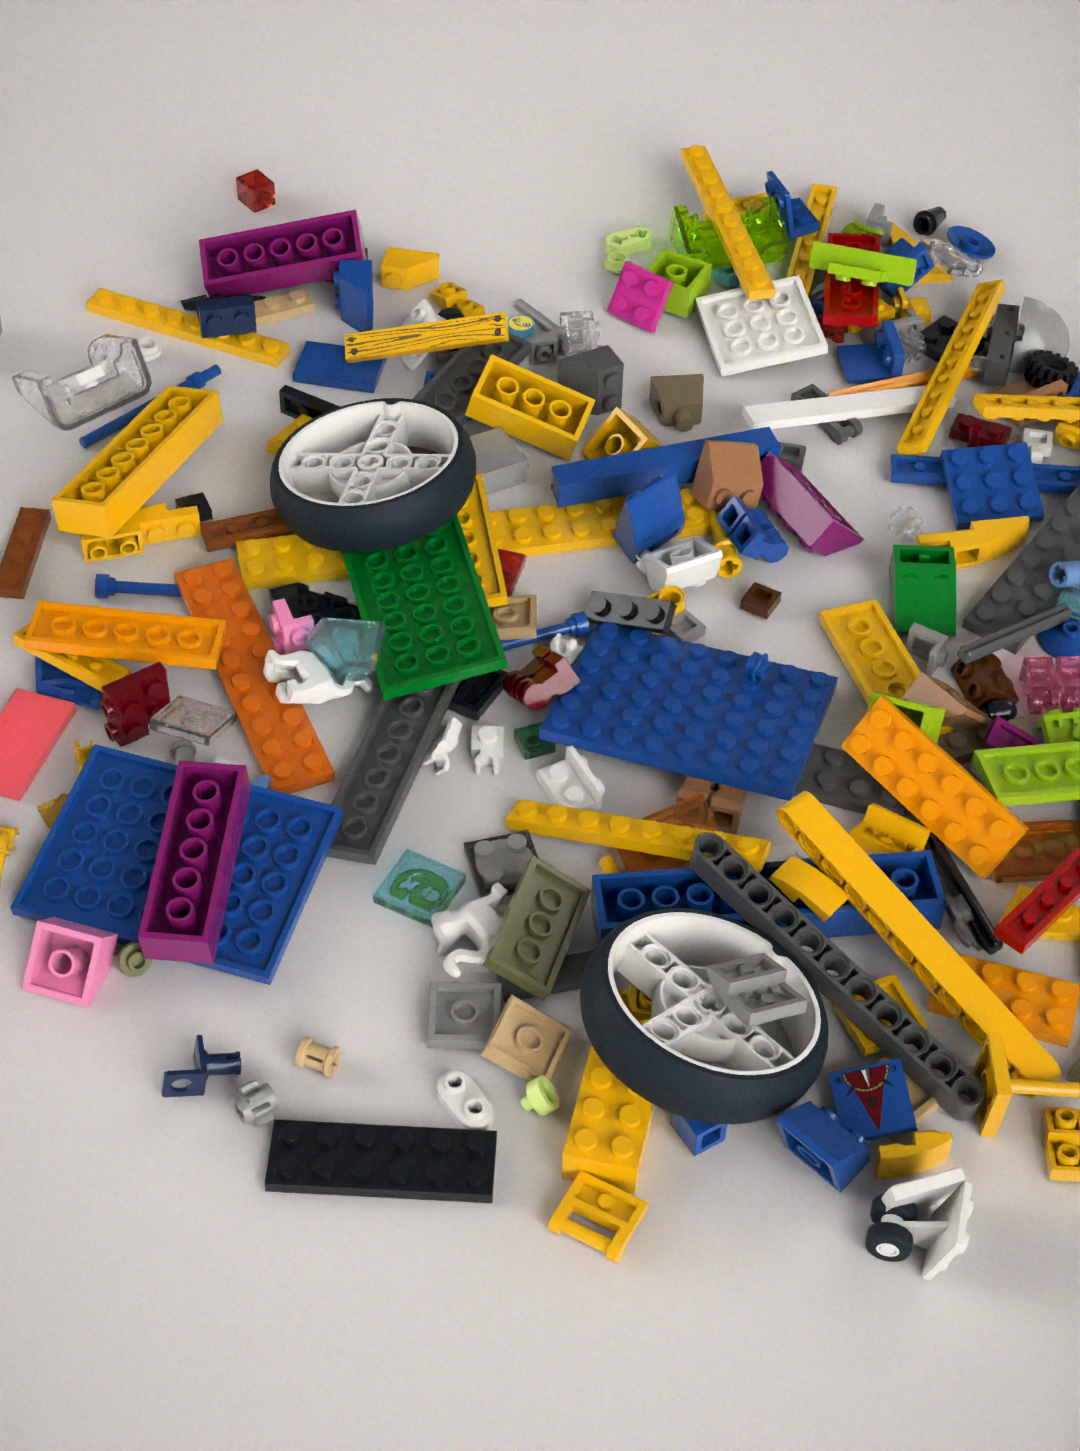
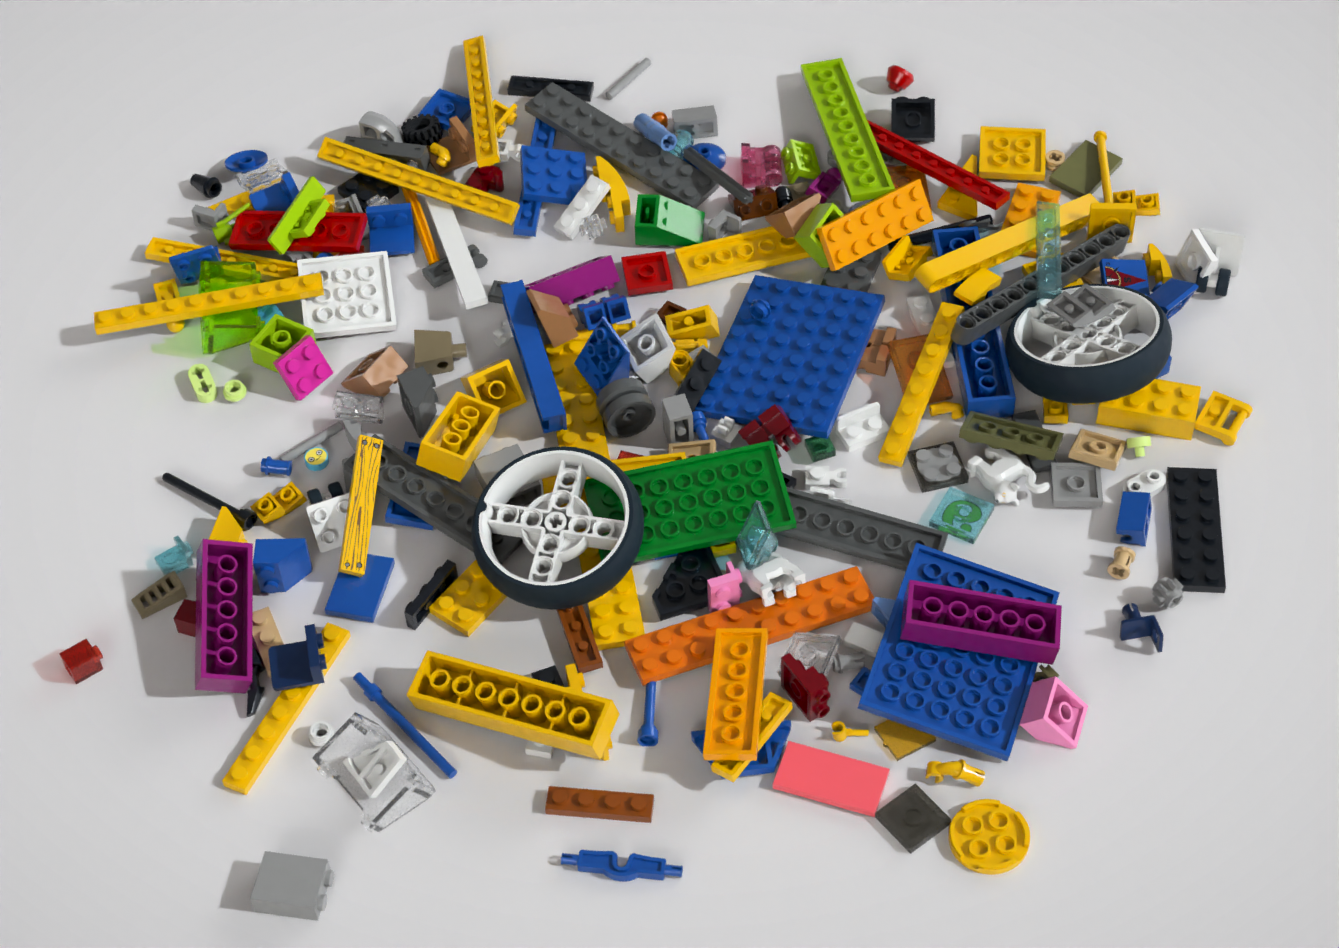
camera: 85 degrees left, 5 degrees up
(383, 238) = (176, 558): none -> clear light blue bracket
(398, 1079) = (1134, 517): none -> blue hinge
(435, 278) = (244, 517): none -> black piece
(507, 294) = (275, 466): none -> blue pin
(562, 590) = (677, 419): none -> light grey brick
(583, 546) = (625, 407): none -> dark grey wheel
(643, 356) = (376, 373): none -> medium nougat slope
(710, 616) = (689, 344): none -> yellow axle
(736, 615) = (693, 324): none -> yellow slope
(833, 577) = (647, 273): none -> red plate
(889, 970) = (1048, 250): none -> clear light blue tile
(943, 511) = (582, 206): none -> white plate
(1011, 388) = (443, 154): none -> yellow arm

